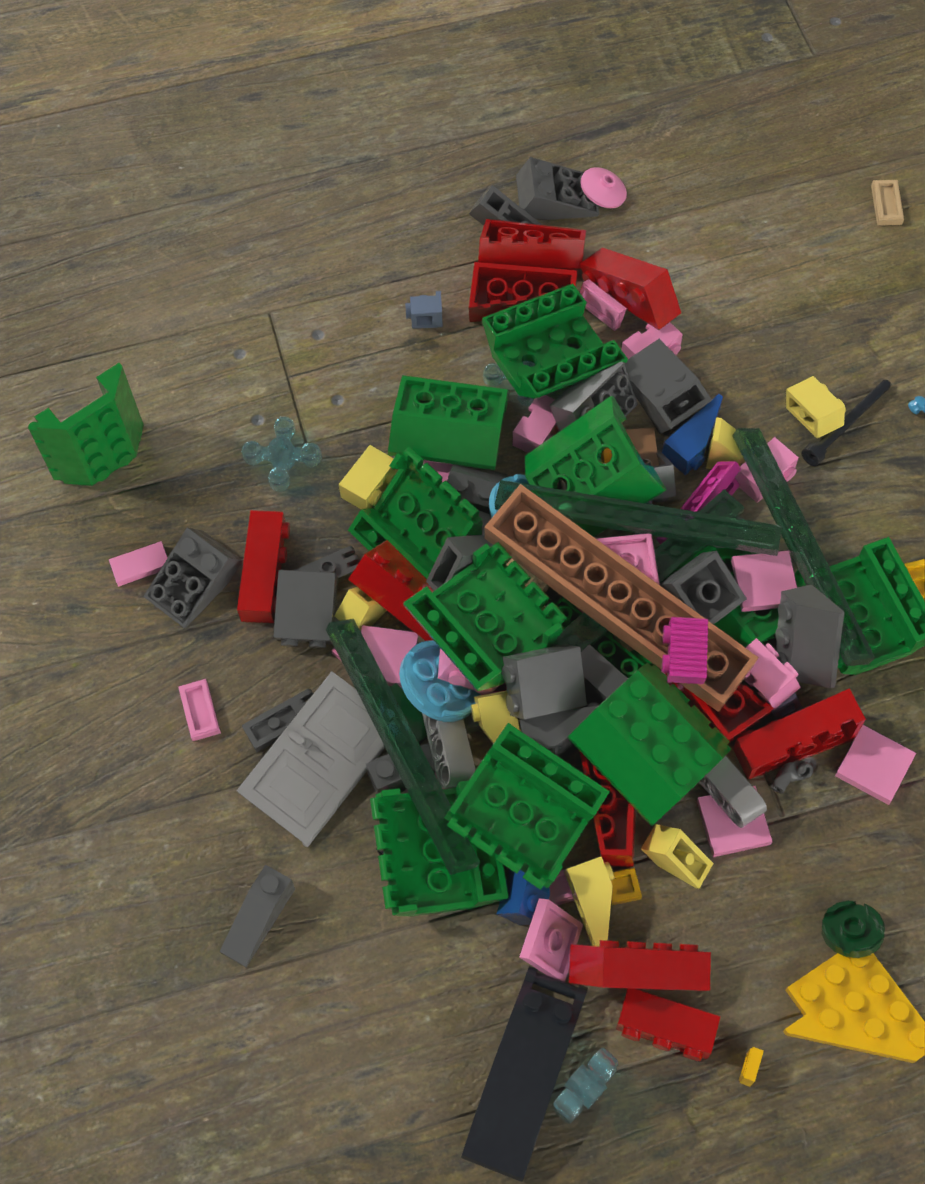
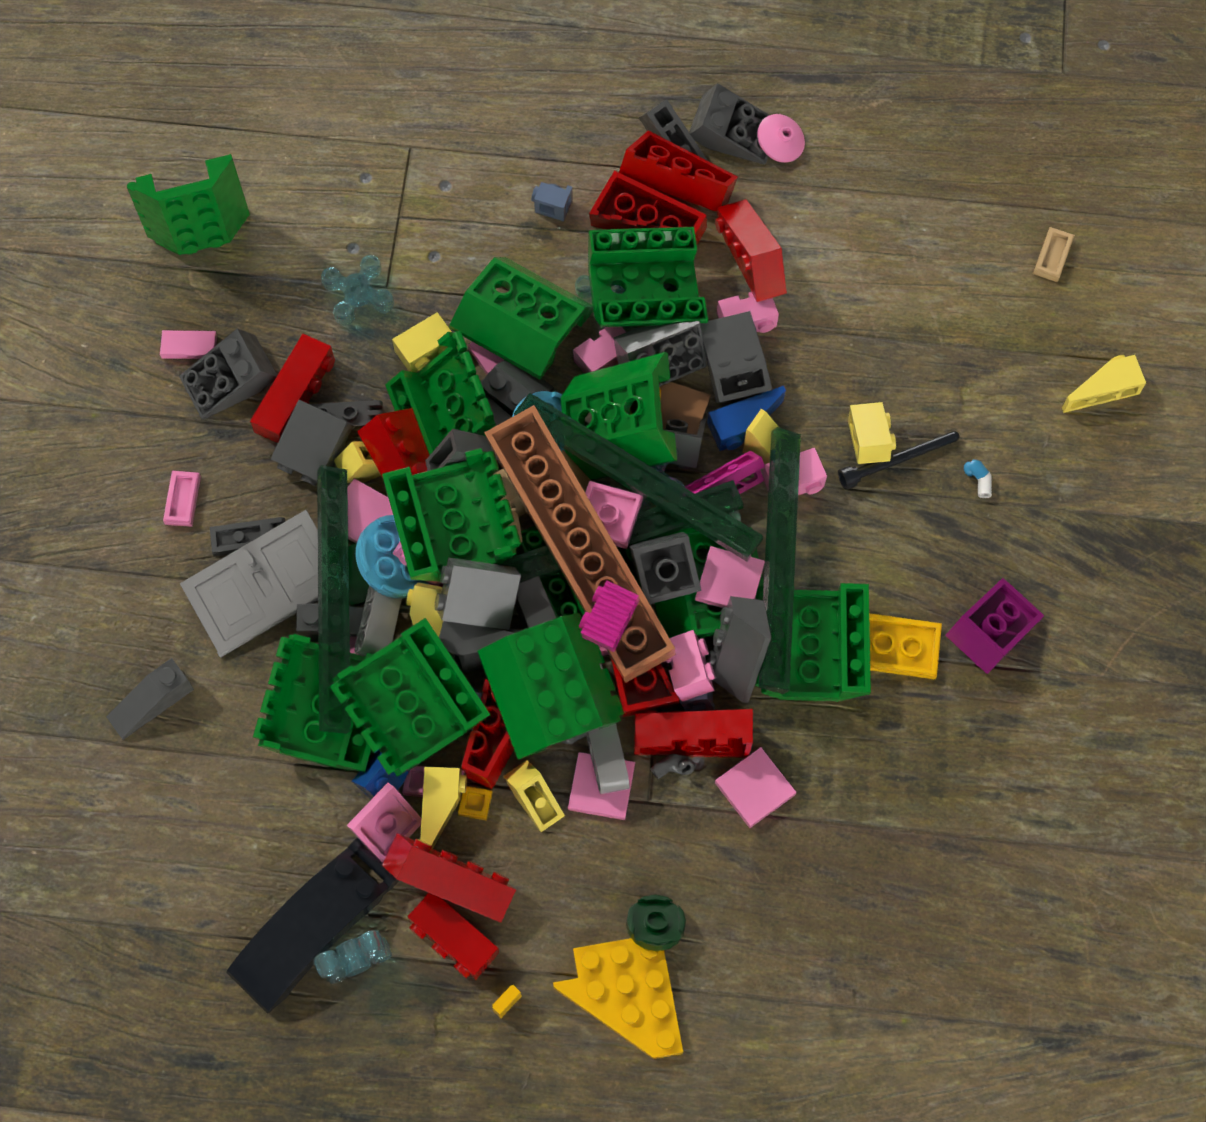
camera: 20 degrees right, 5 degrees up
(602, 305) = (719, 256): bright pink tile -> none

